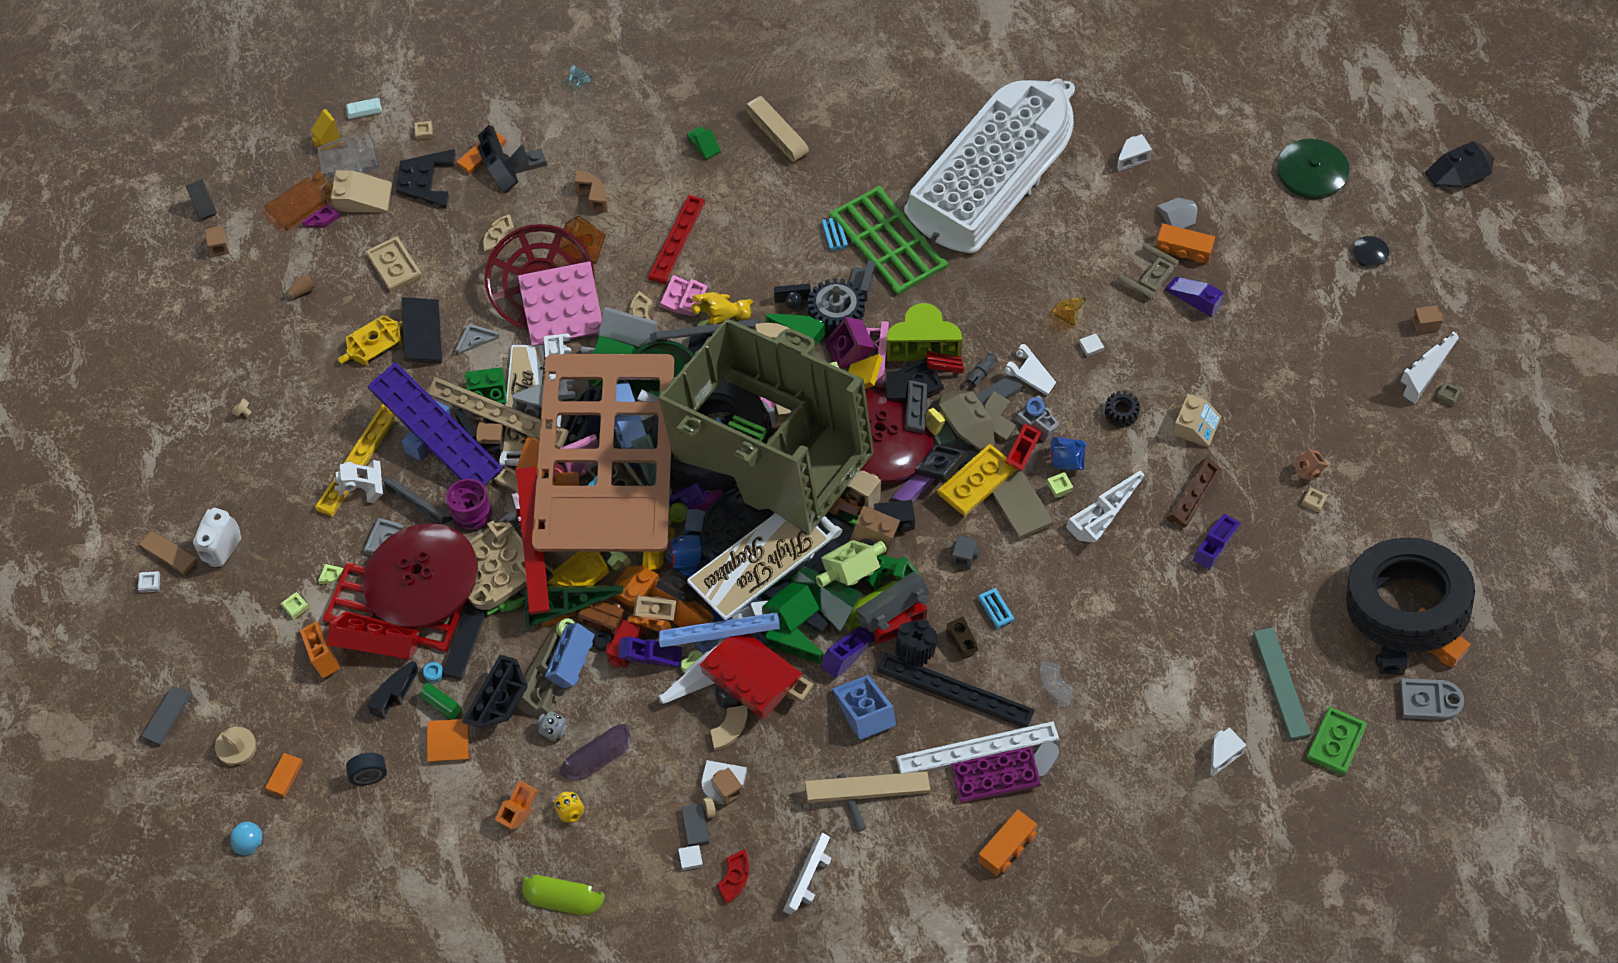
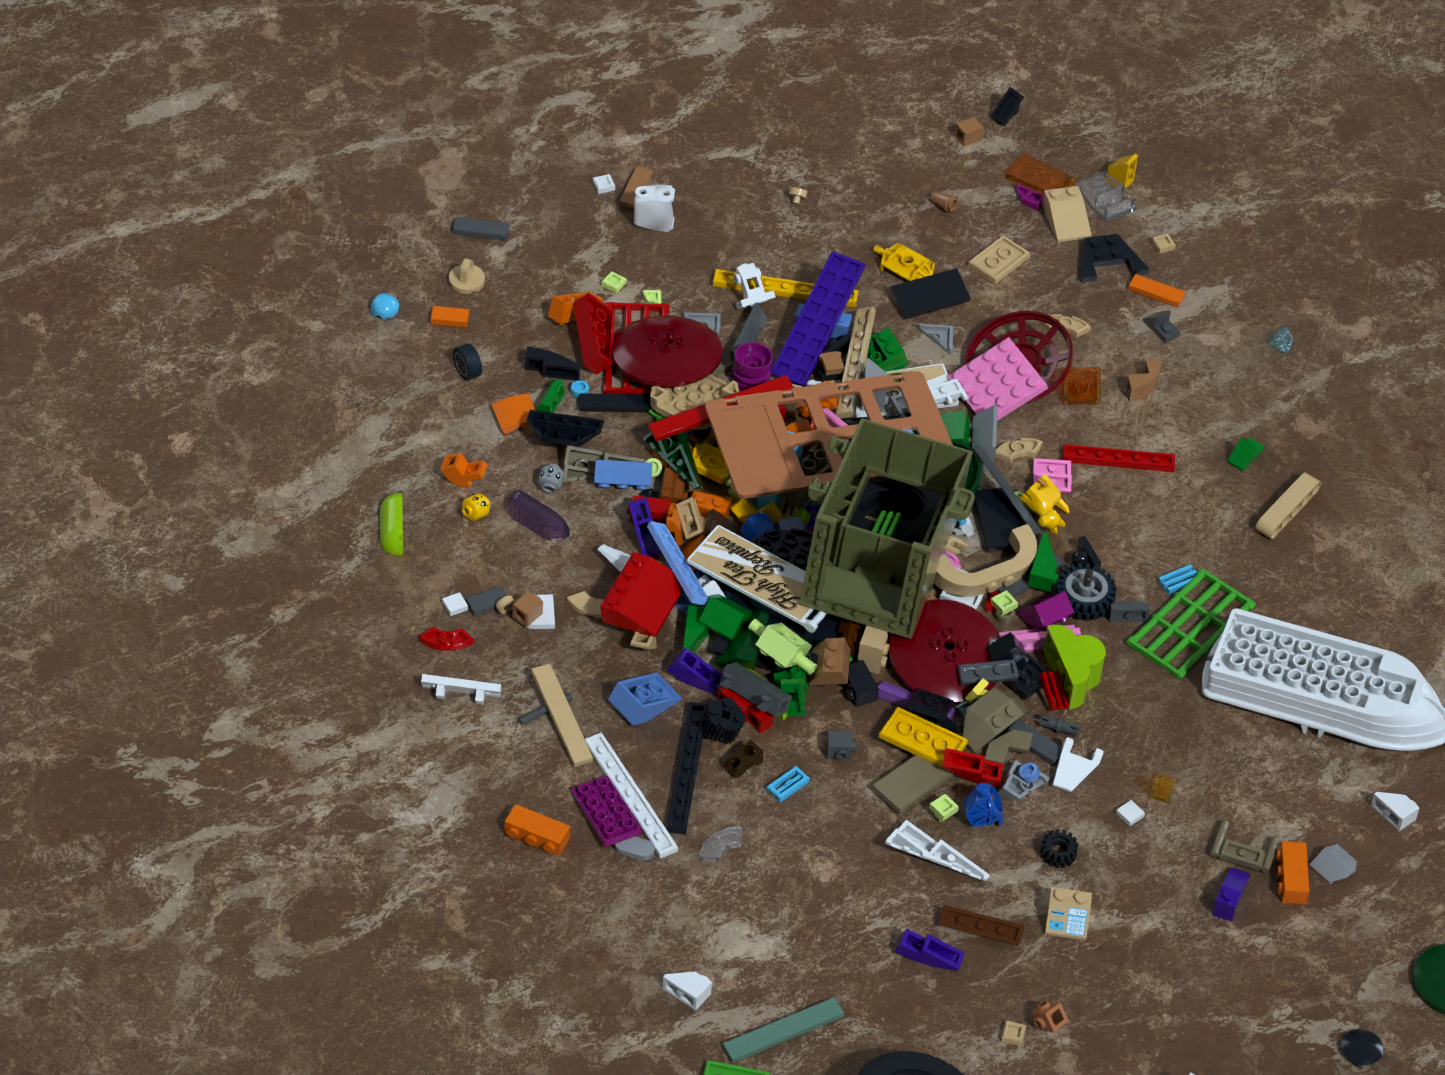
camera: 70 degrees right, 10 degrees down
(363, 108) = (1169, 195): light aqua tile -> none
(495, 160) = (1144, 299): black slope -> none
(867, 369) = (1010, 625): yellow tile -> none

